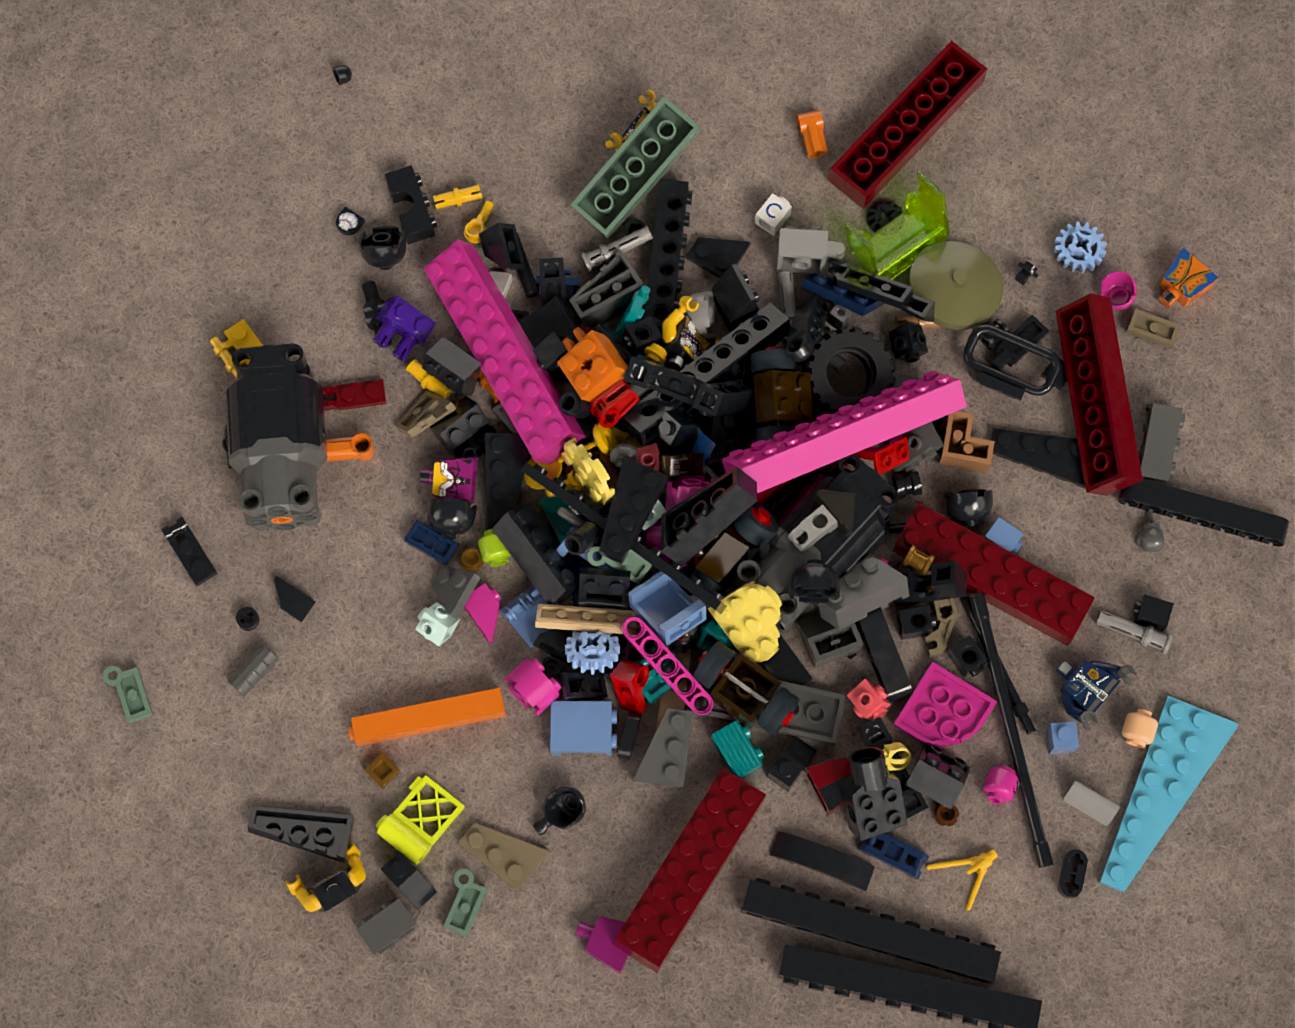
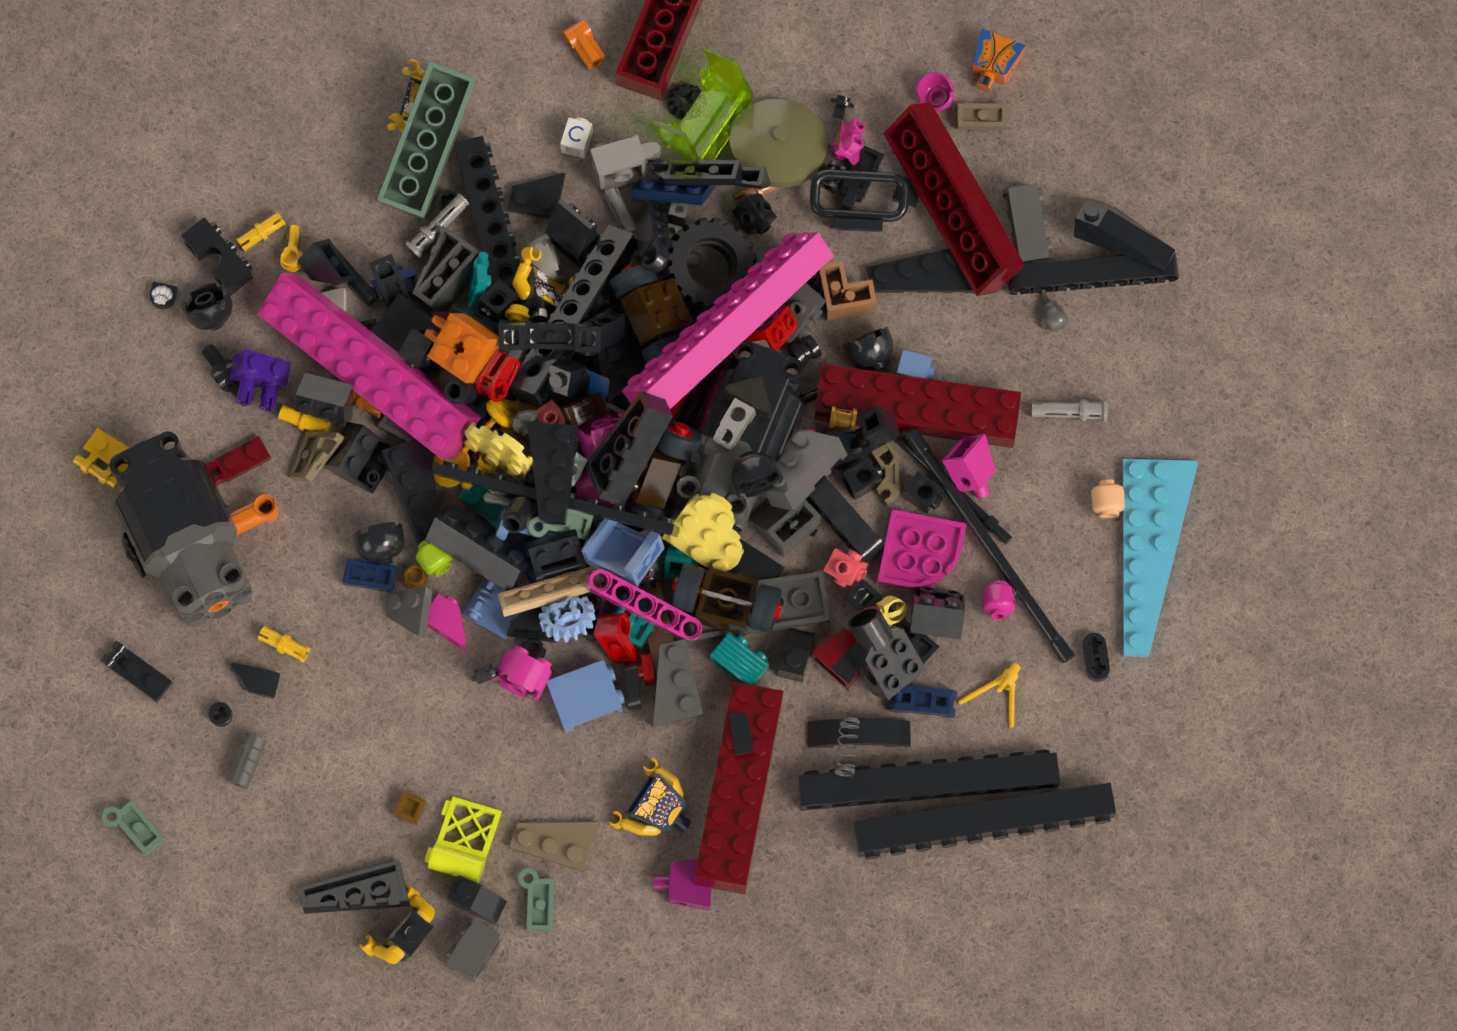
camera: 20 degrees left, 0 degrees up
(329, 576) = (283, 644): none -> yellow pin
(342, 74) = (96, 151): black hinge -> none
(427, 717) = (433, 741): orange brick -> none
(436, 624) = (406, 650): light aqua brick -> none
(453, 478) = (366, 505): torso -> none
(498, 673) = (484, 673): none -> black axle
(562, 809) = (596, 779): black hair -> none
(583, 686) = (571, 655): black slope -> none
(607, 856) = (656, 805): none -> torso
(647, 726) = (646, 670): none -> red plate
(710, 821) = (741, 734): none -> black window
(792, 889) = (849, 767): none -> dark grey piece
(943, 820) = (958, 653): reddish brown plate -> none
(1021, 306) = (848, 141): none -> dark pink hips
(1022, 648) = (971, 464): none -> dark pink torso
(1062, 737) = (1039, 534): medium blue brick -> none
(1080, 257) = (884, 73): light blue gear -> none
(1090, 687) = (1047, 478): torso -> none
(1091, 803) = (1088, 585): light grey slope -> none
(1152, 612) = (1080, 386): black brick -> none
(1243, 483) = (1118, 232): none -> black wedge

